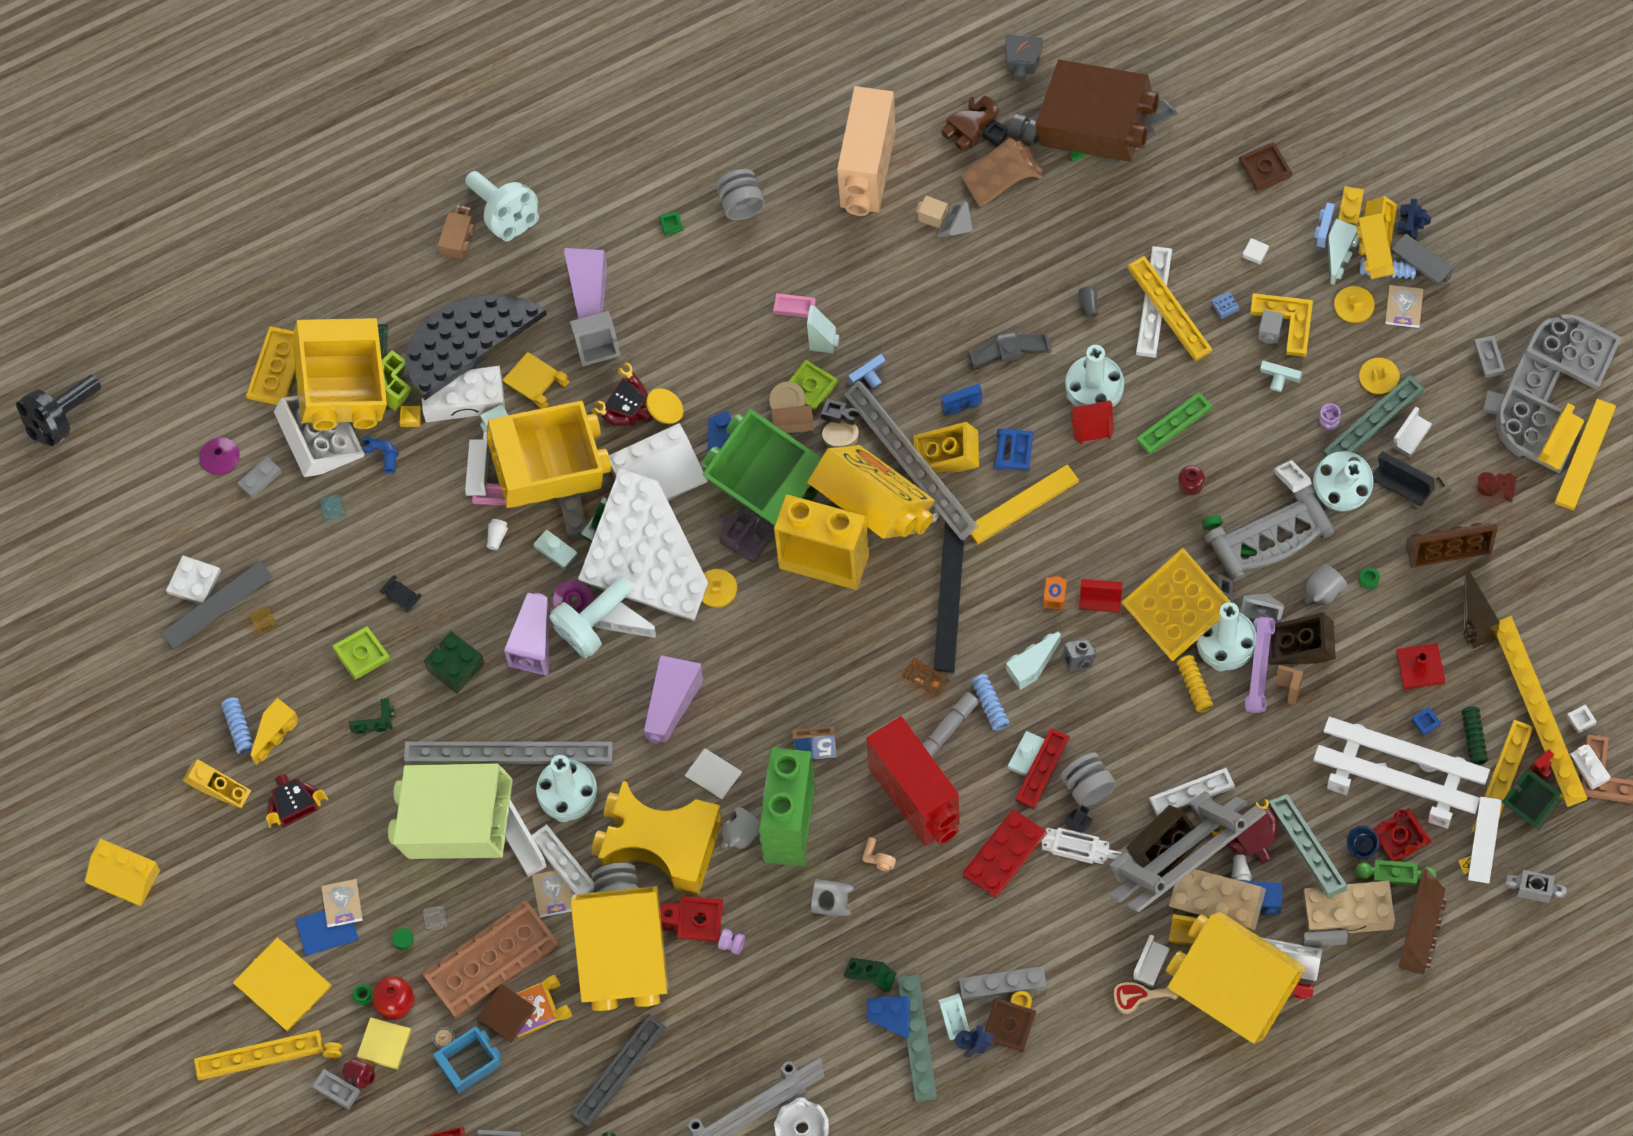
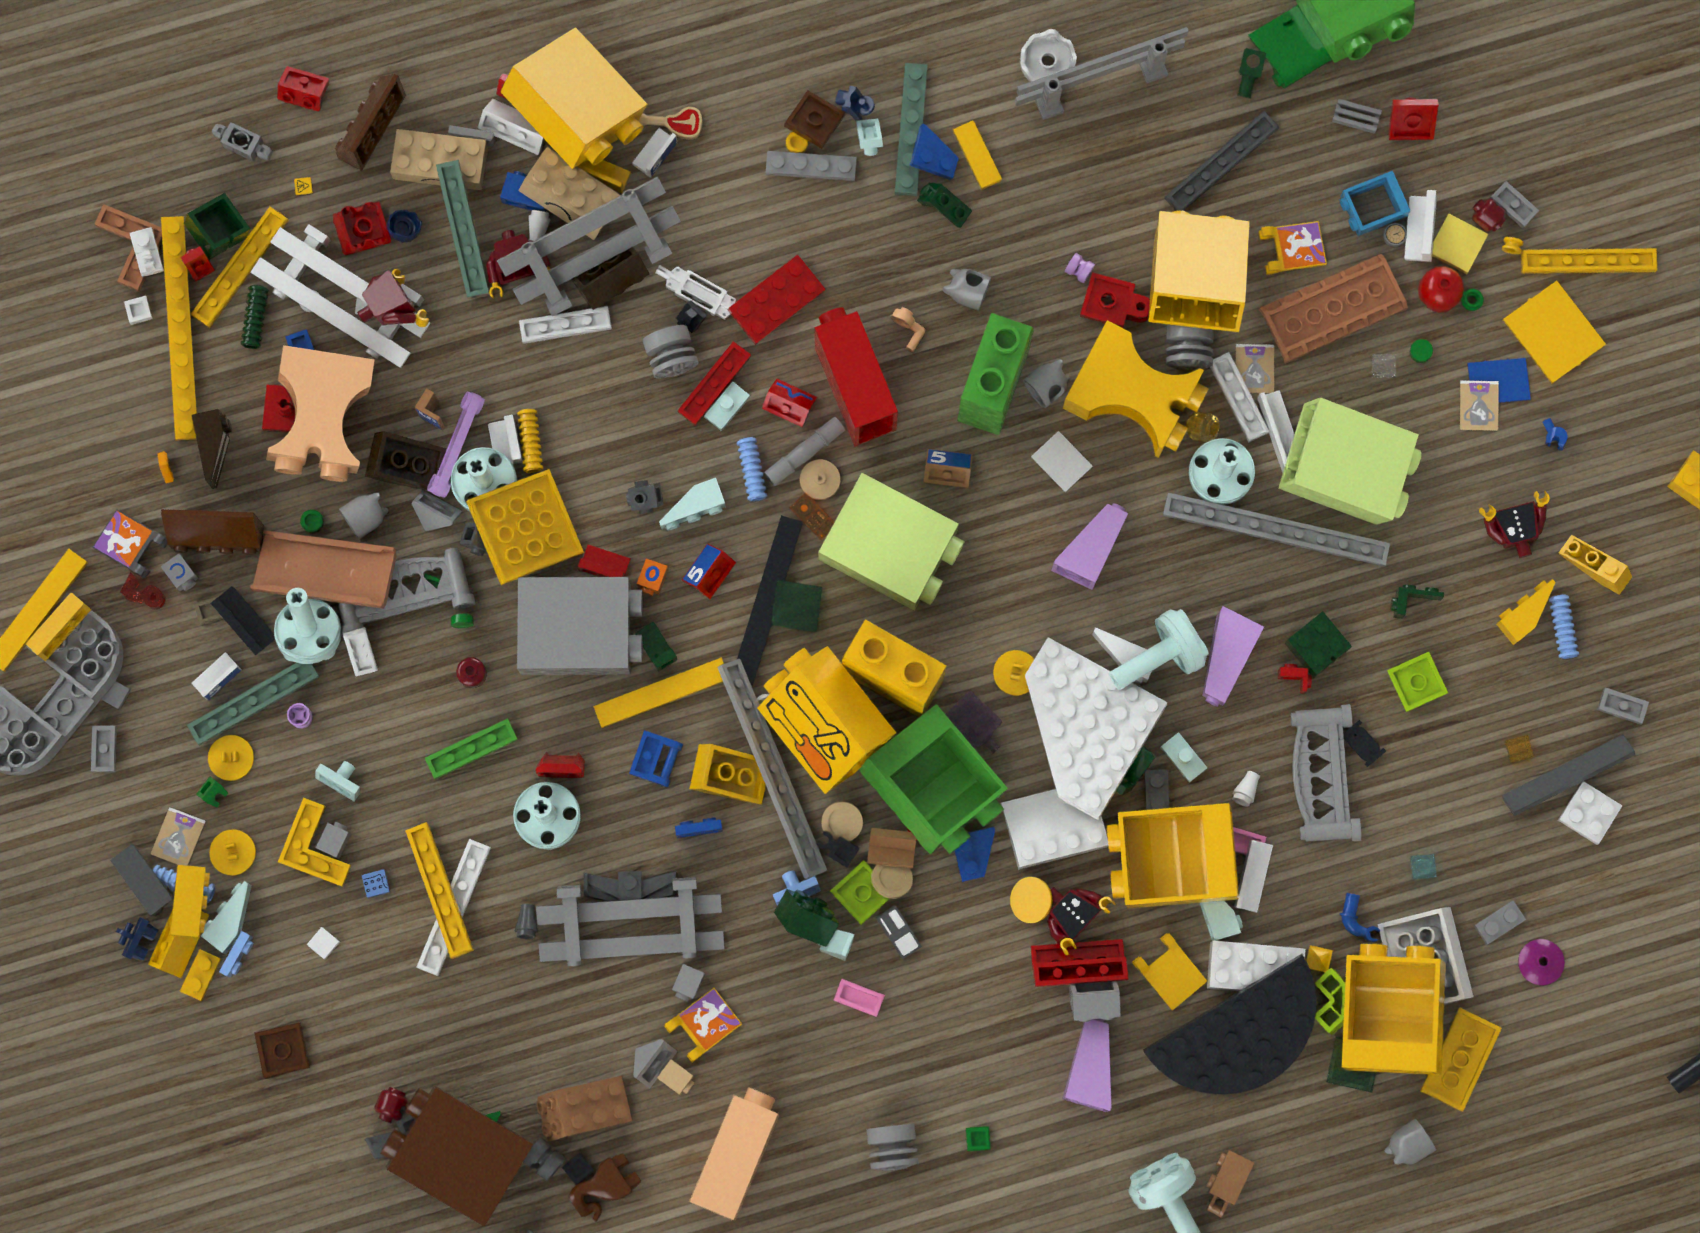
camera: 175 degrees left, 15 degrees up
(176, 671) = (1623, 706): none -> light grey plate
(268, 889) = (1555, 434): none -> blue piece
(309, 288) = (1410, 1144): none -> light grey piece
(420, 1047) = (1421, 227): none -> white panel
(431, 600) = (1330, 725): none -> light grey piece
(470, 635) = (1292, 672): none -> red bracket
(506, 1013) = (1326, 245): reddish brown tile -> none
(573, 588) = (1176, 680): magenta dish -> none
(590, 821) = (1202, 426): none -> clear yellow head
(598, 366) = (1086, 964): none -> red slope
(772, 359) = (898, 932): none -> slope
(849, 1027) = (977, 155): none -> yellow tile
(850, 660) = (891, 543): none -> yellowish green brick
(851, 343) = (806, 917): none -> dark green piece
(918, 259) = (705, 1022): none -> flag
(921, 597) = (796, 606): none -> clear green tile
(927, 710) = (820, 479): none -> tan piece
(940, 284) = (688, 983): none -> light grey brick
(961, 342) = (572, 913): none -> light grey fence
(970, 768) = (788, 402): none -> red panel
(1007, 610) = (709, 570): none -> panel
(1035, 537) = (656, 647): none -> dark green bracket
(1109, 533) = (577, 626): none -> light grey brick
(1162, 143) = (391, 1105): none -> dark red head
(1216, 682) = (505, 439): none -> white panel
(1343, 531) = (325, 569): none -> nougat ladder
(1355, 762) = (389, 302): none -> torso
(1387, 343) = (210, 790): none -> green tile
(1389, 674) = (322, 392): none -> light nougat brick
(1395, 872) = (380, 189): bright green plate -> none
(1470, 507) = (180, 573): none -> light grey brick
(1484, 840) = (279, 197): white slope -> none
(1496, 949) = (302, 88): none -> red bracket
(1514, 591) = (164, 467): none -> light orange tile
(1525, 525) = (127, 542): none -> flag

